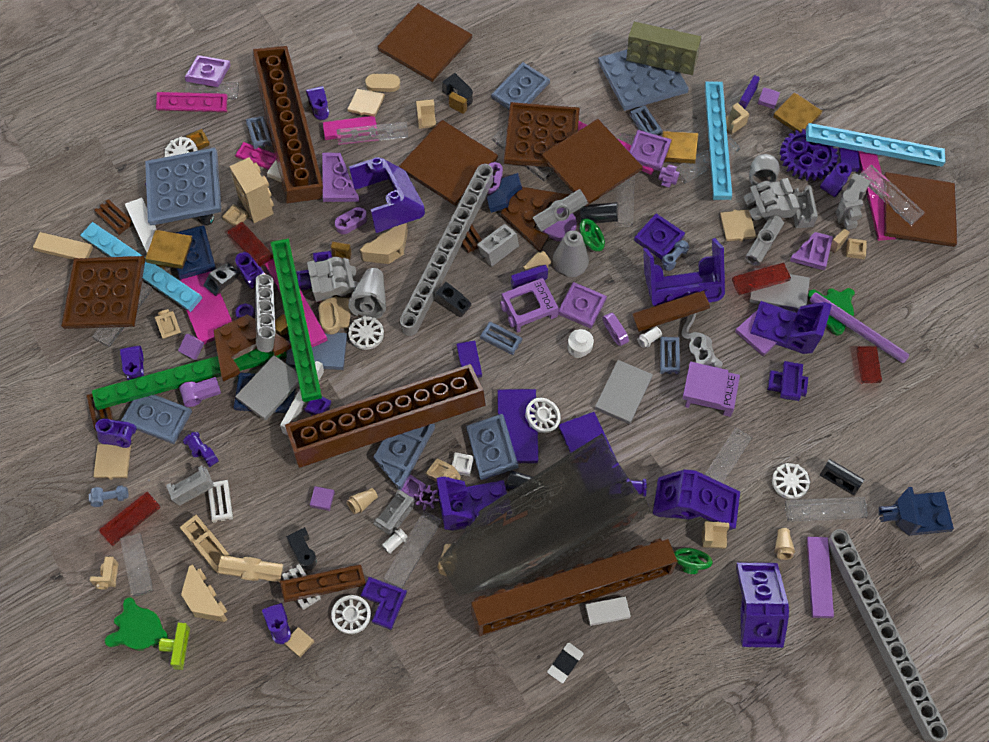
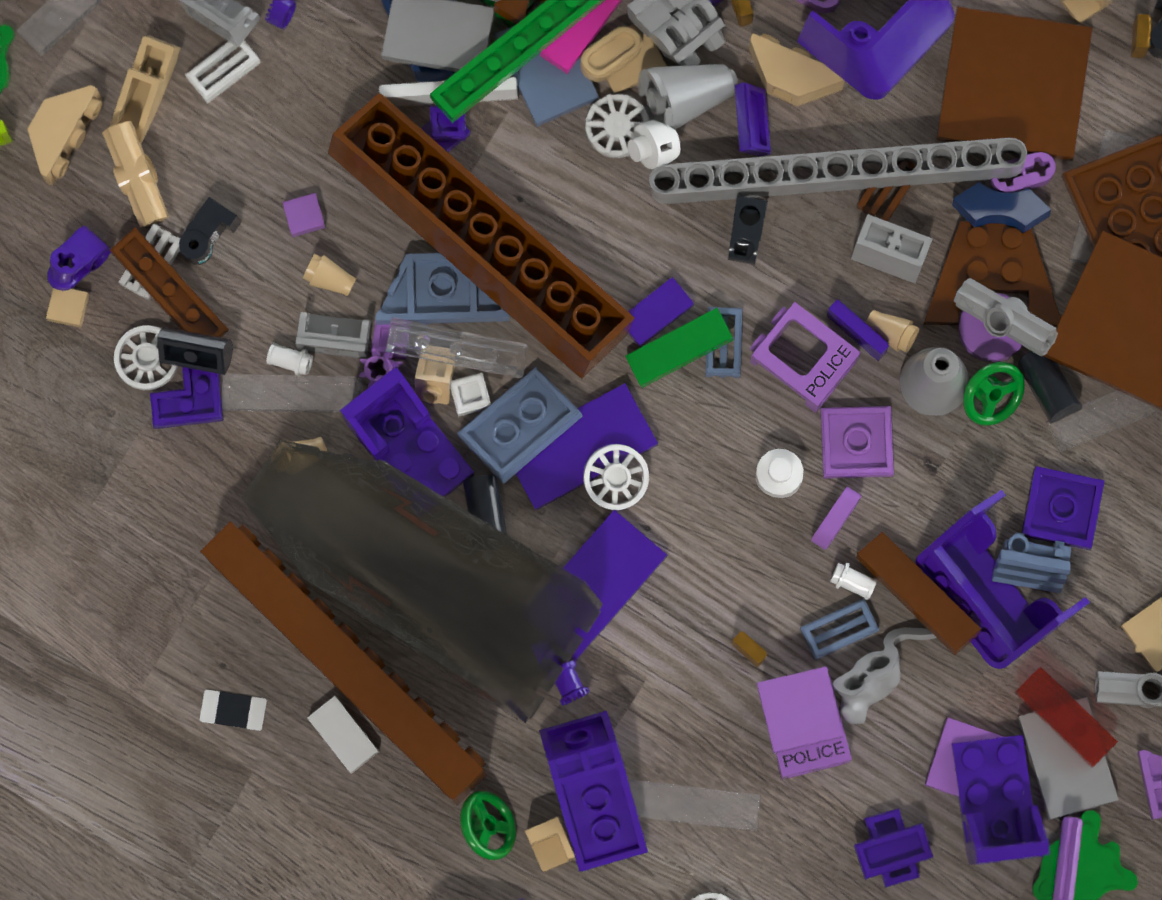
camera: 70 degrees right, 15 degrees up
(364, 583) = (194, 350): none -> black brick
(386, 317) = (647, 143): none -> white piece
(400, 272) = (752, 119): none -> dark purple tile
(436, 456) = (456, 347): none -> clear tile
(494, 356) = (679, 347): none -> green tile
(623, 392) = (731, 585): light grey tile -> none
(660, 396) = (749, 648): none -> pearl gold tile
(683, 262) = (1030, 571): none -> sand blue tile

